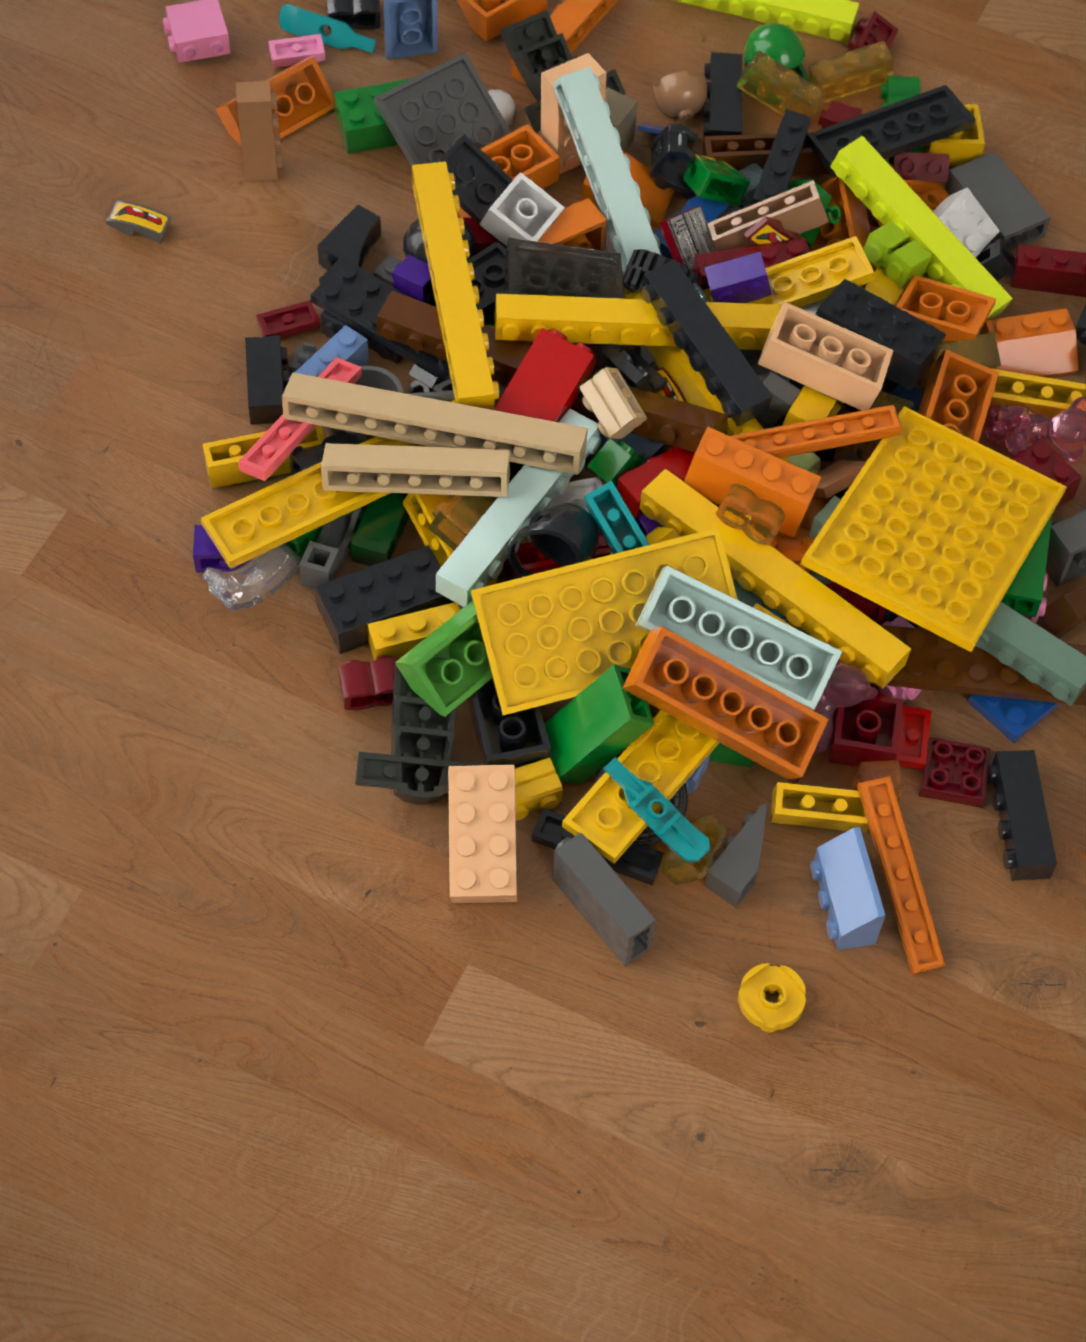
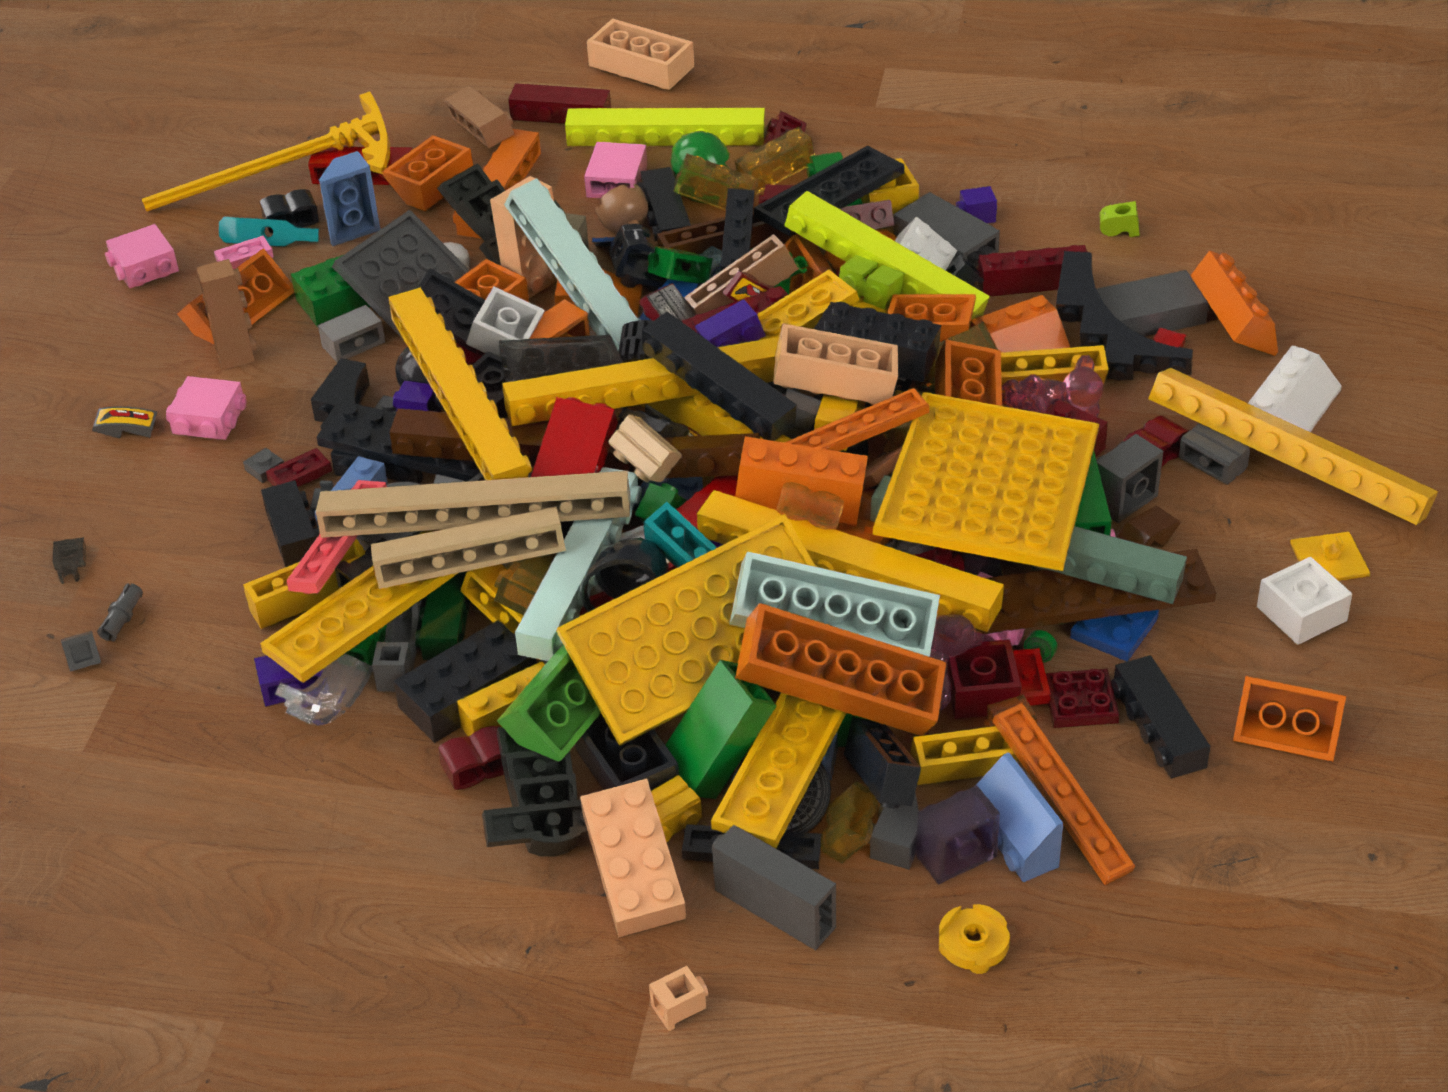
camera: 10 degrees left, 15 degrees down
(41, 470) = (81, 651): none -> dark grey tile
(53, 359) = (67, 556): none -> clear smoke plate
(86, 436) = (120, 612): none -> dark grey pin
(217, 227) = (206, 408): none -> bright pink brick
(257, 302) = (260, 463): none -> dark grey plate
(377, 174) = (351, 333): none -> light grey brick
(486, 972) = (678, 996): none -> light nougat brick
(670, 824) = (818, 797): teal piece -> none
(687, 40) = (614, 166): none -> bright pink brick
(739, 803) = (882, 762): none -> black brick
(788, 891) = (957, 834): none -> brick
(936, 703) = (1043, 641): none -> green tile
(1040, 177) = (979, 203): none -> dark purple brick

